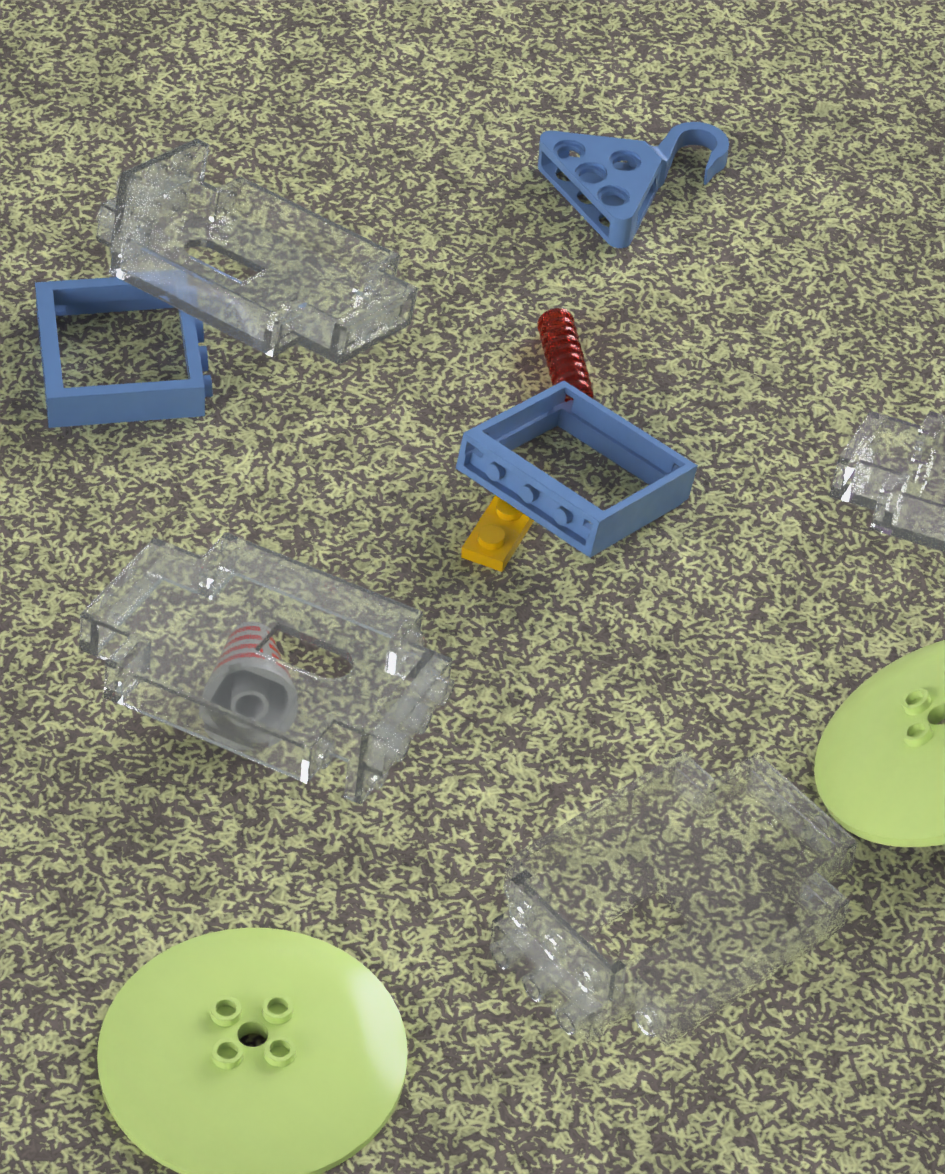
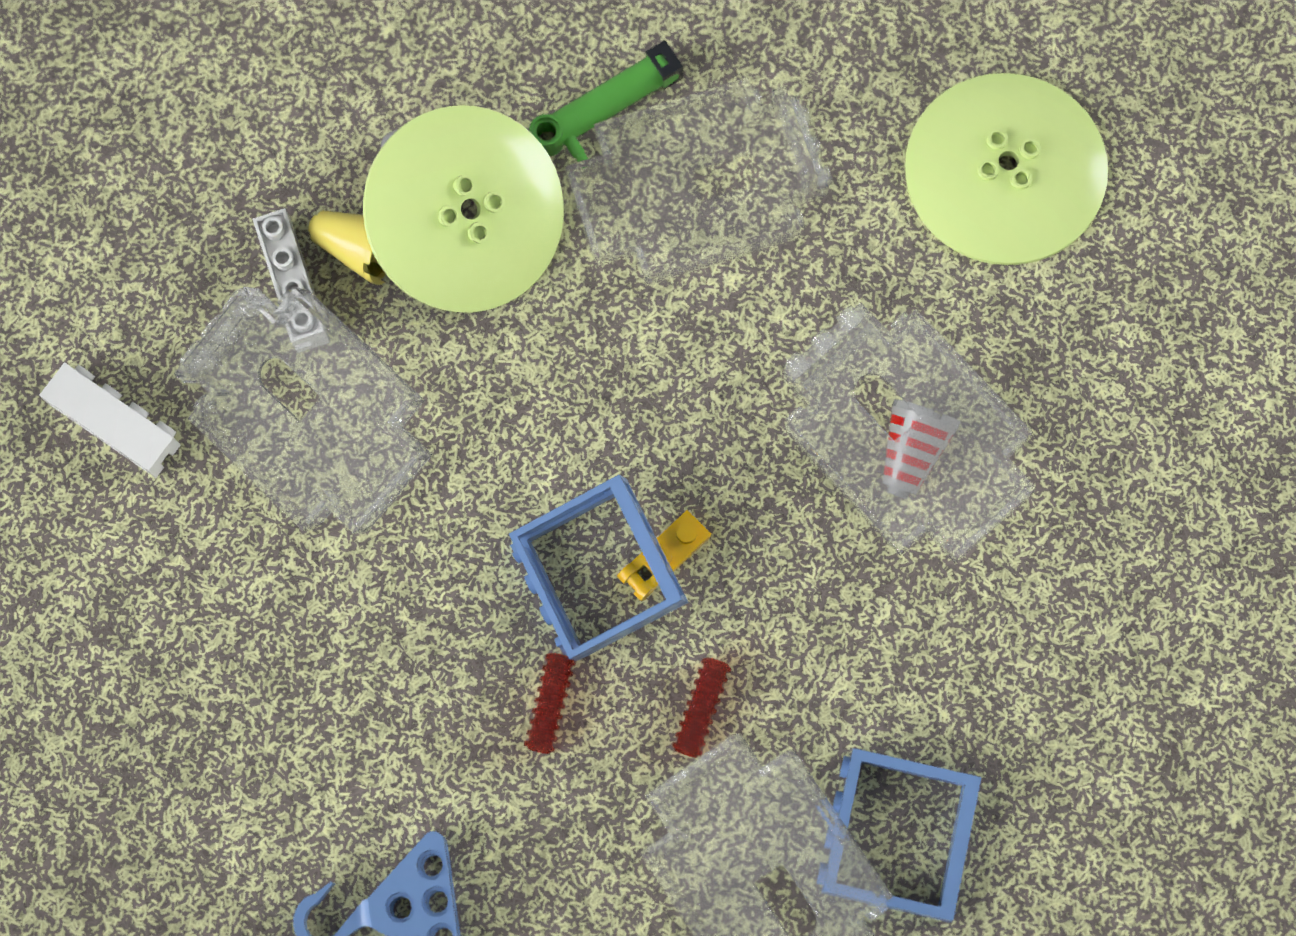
camera: 150 degrees left, 30 degrees up
(393, 397) = (701, 707): none -> clear red piece
(804, 1012) = (656, 70): none -> bright green piece

